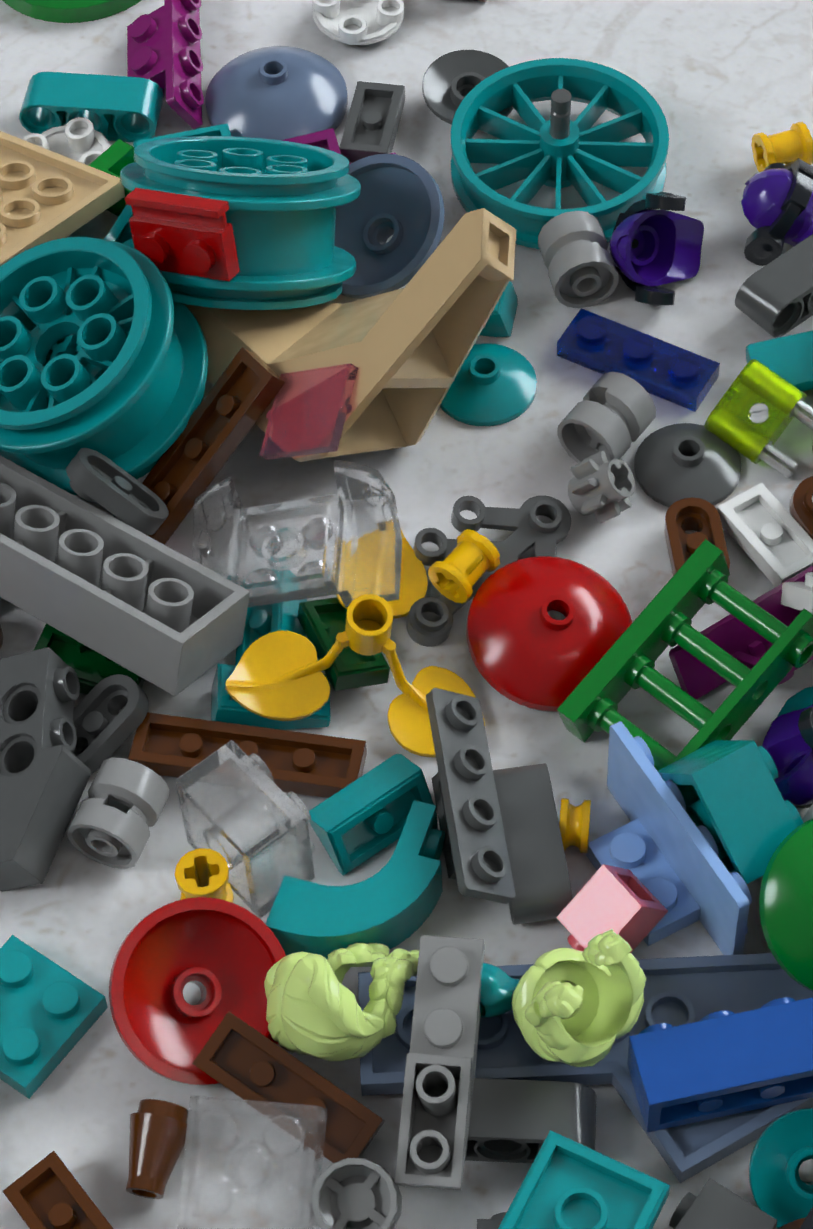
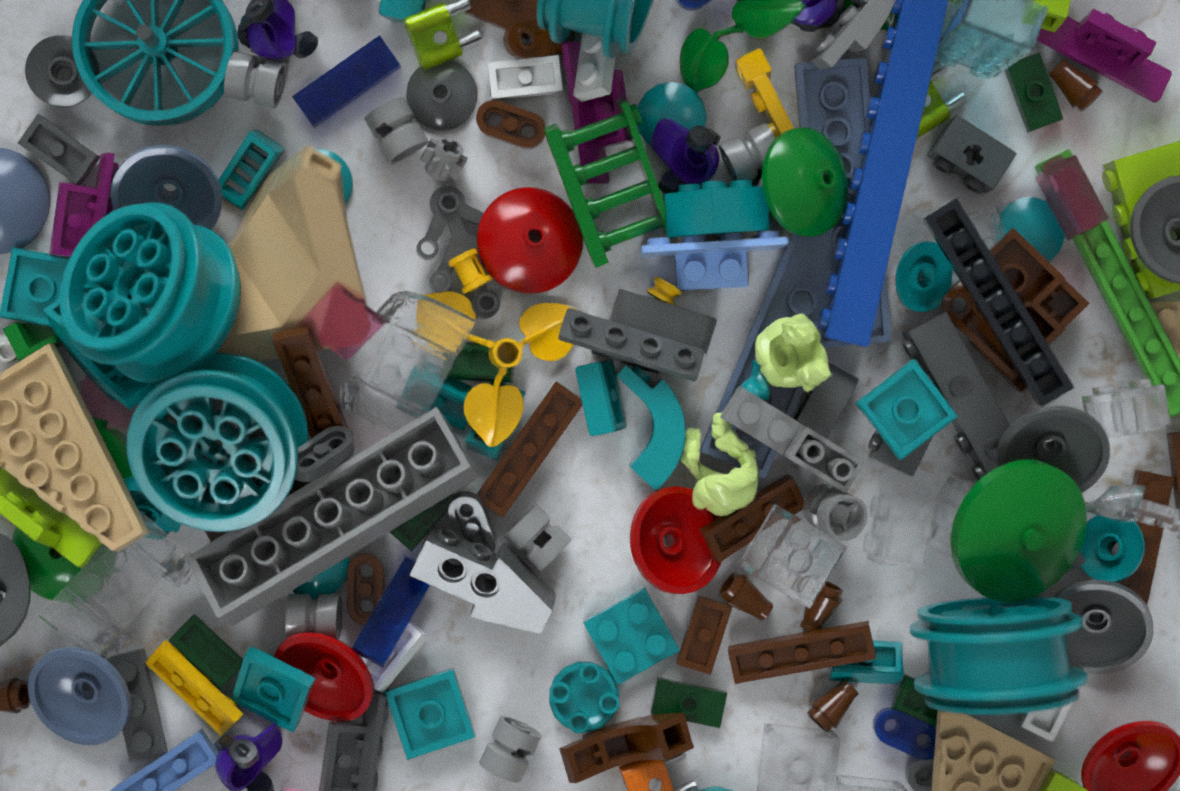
camera: 70 degrees left, 35 degrees up
(65, 1112) = (704, 635): none -> reddish brown plate
(184, 233) = (180, 346): red plate -> none
(201, 869) = (610, 518): yellow bush -> none
(250, 821) = (590, 474): clear brick -> none
(611, 901) = (734, 302): brick -> none

